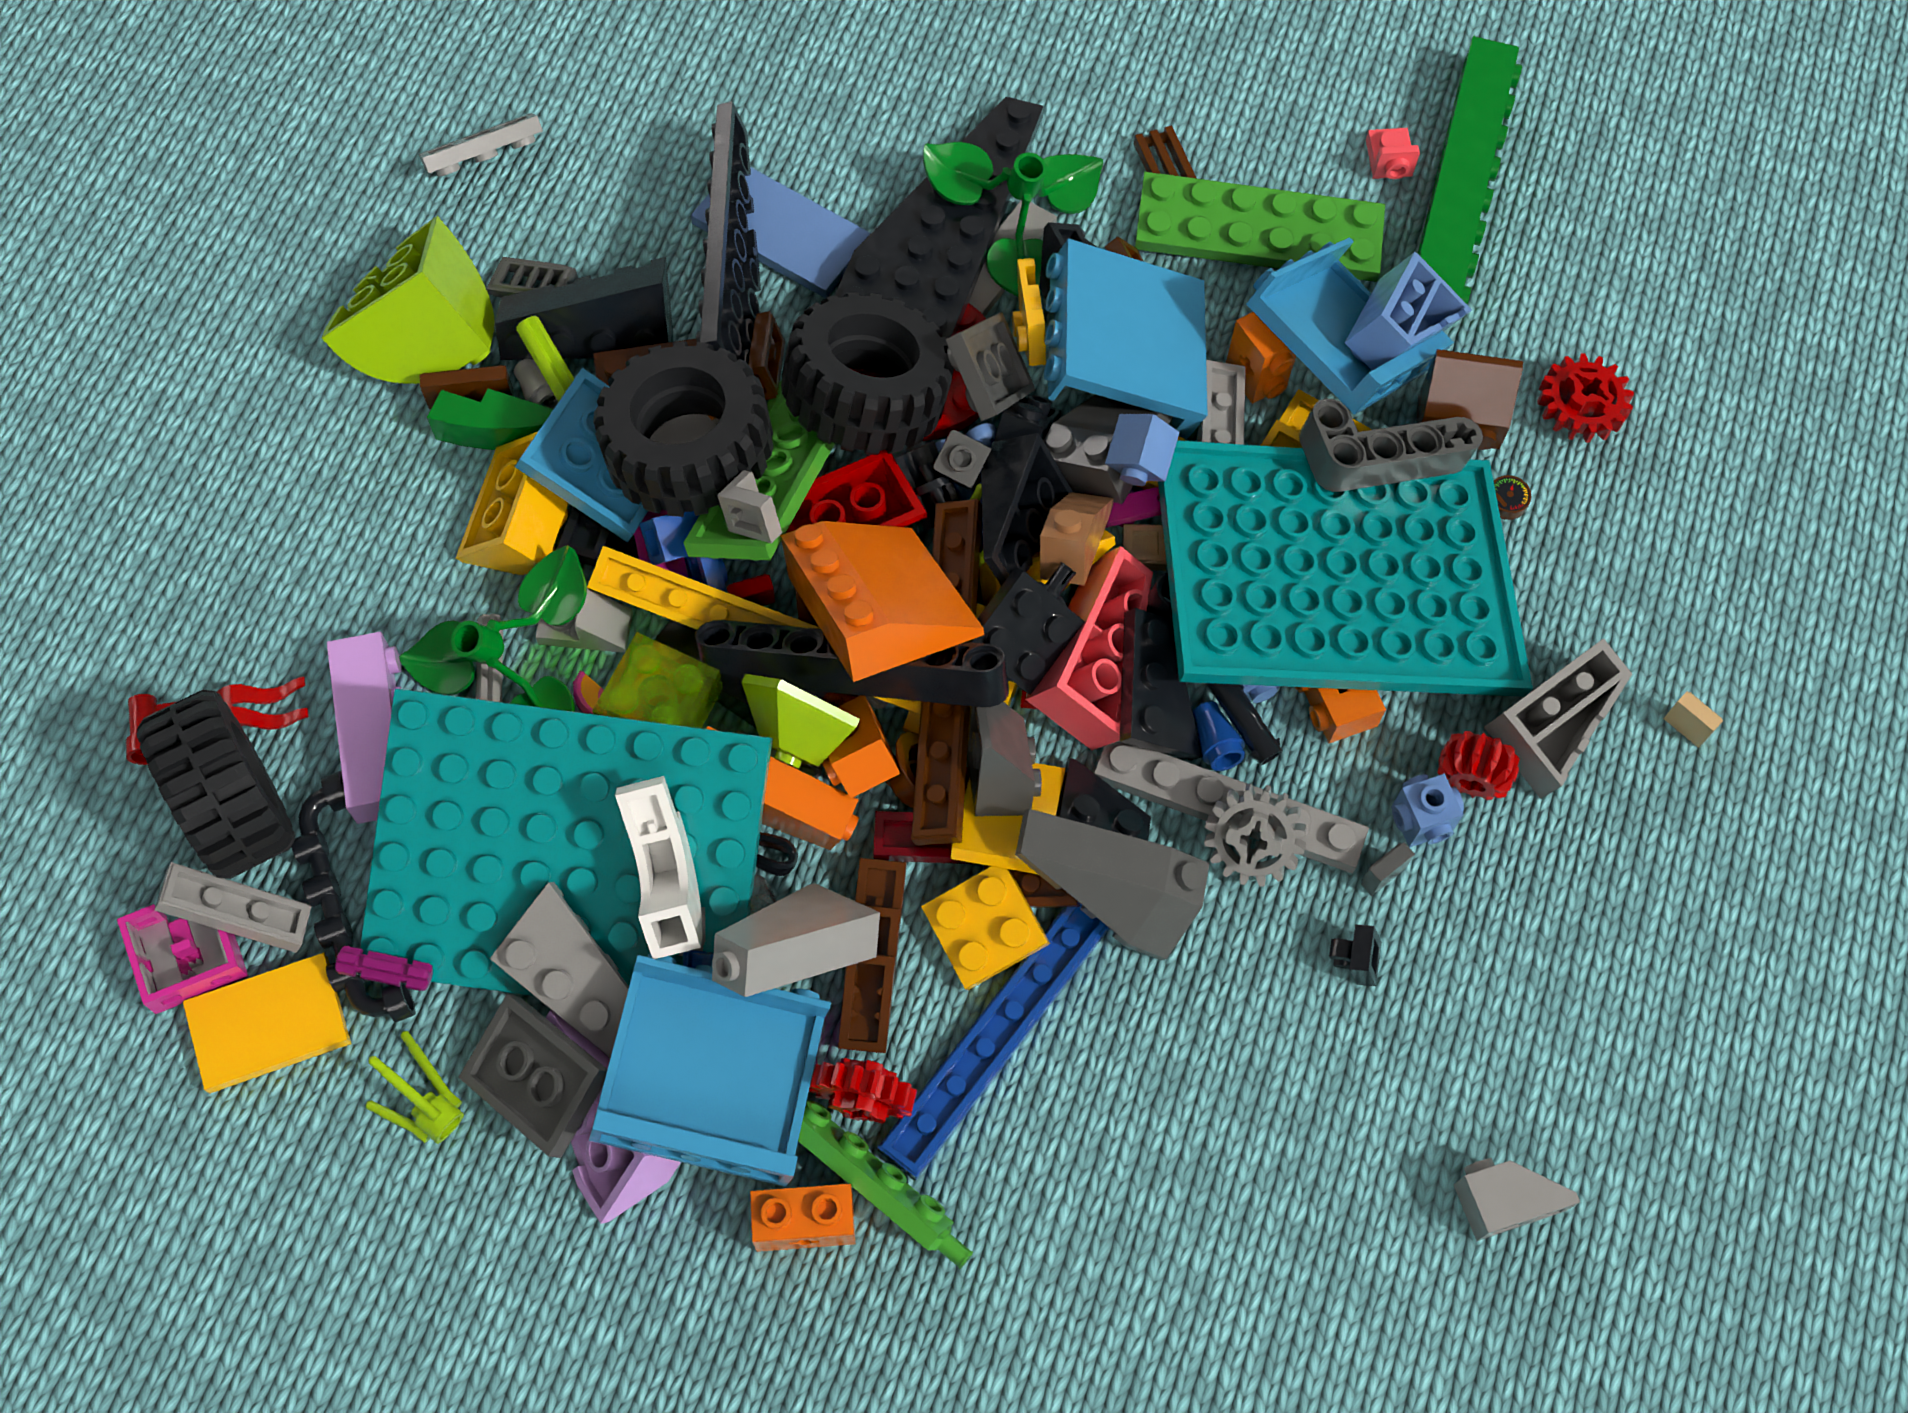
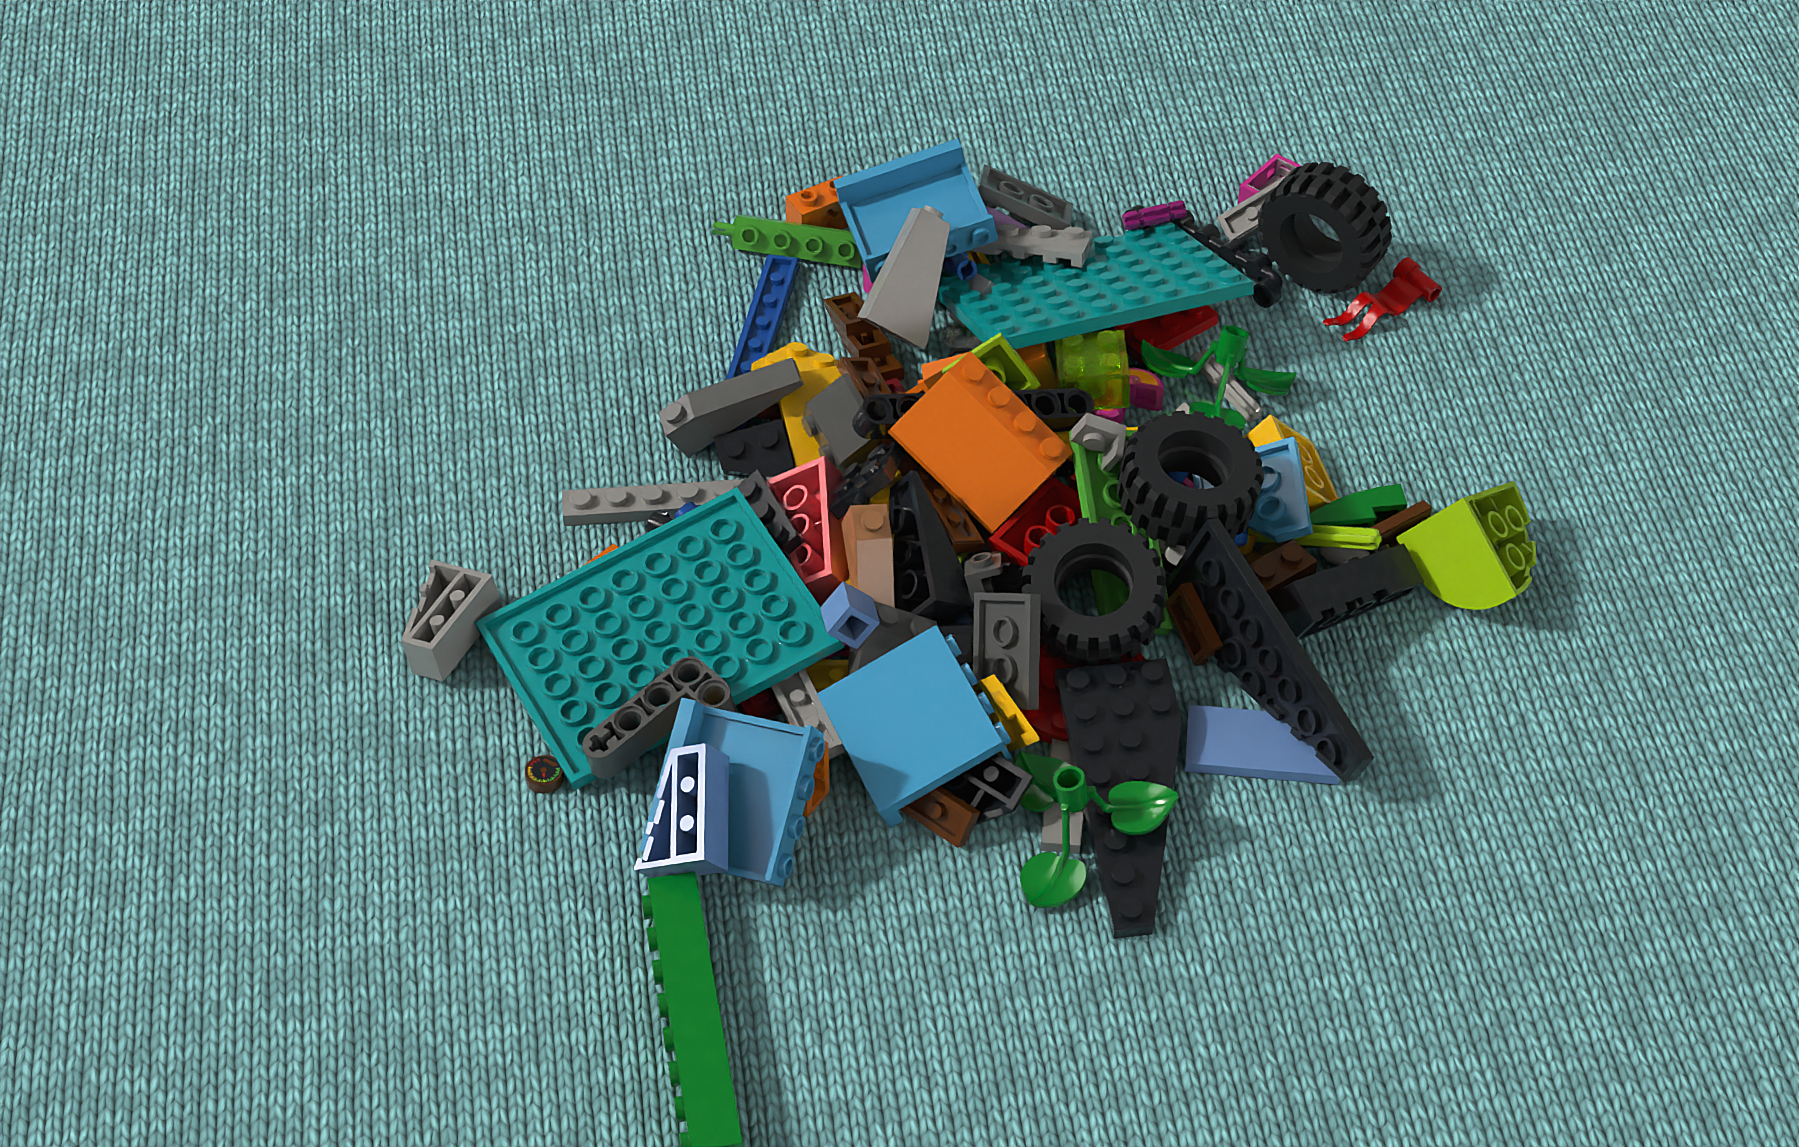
camera: 155 degrees right, 20 degrees down
(265, 1023) = (1206, 188): yellow tile -> none
(363, 701) = (1282, 331): lavender brick -> none
(434, 1114) = (1071, 183): lime plant -> none
(481, 144) = (1554, 700): light grey plate -> none
(535, 270) = (1398, 629): dark grey slope -> none
(665, 866) = (1002, 265): white arch -> none
(863, 1090) = (806, 258): red gear -> none
(1157, 140) = (978, 928): reddish brown tile -> none
(1255, 223) = (858, 906): bright green plate -> none
(1272, 840) = (641, 467): light grey gear -> none
(1359, 955) = (537, 442): black tile -> none
(1387, 868) = (539, 494): dark grey tile -> none
(1391, 153) = (771, 1023): coral bracket -> none
(1427, 809) = (525, 532): medium blue brick -> none
(1473, 389) = (608, 812): slope -> none
(1479, 765) = (501, 558): red gear -> none
(1508, 1197) = (385, 362): light grey slope -> none
(1585, 397) = (506, 865): red gear -> none
(1693, 719) = (341, 662): tan tile -> none

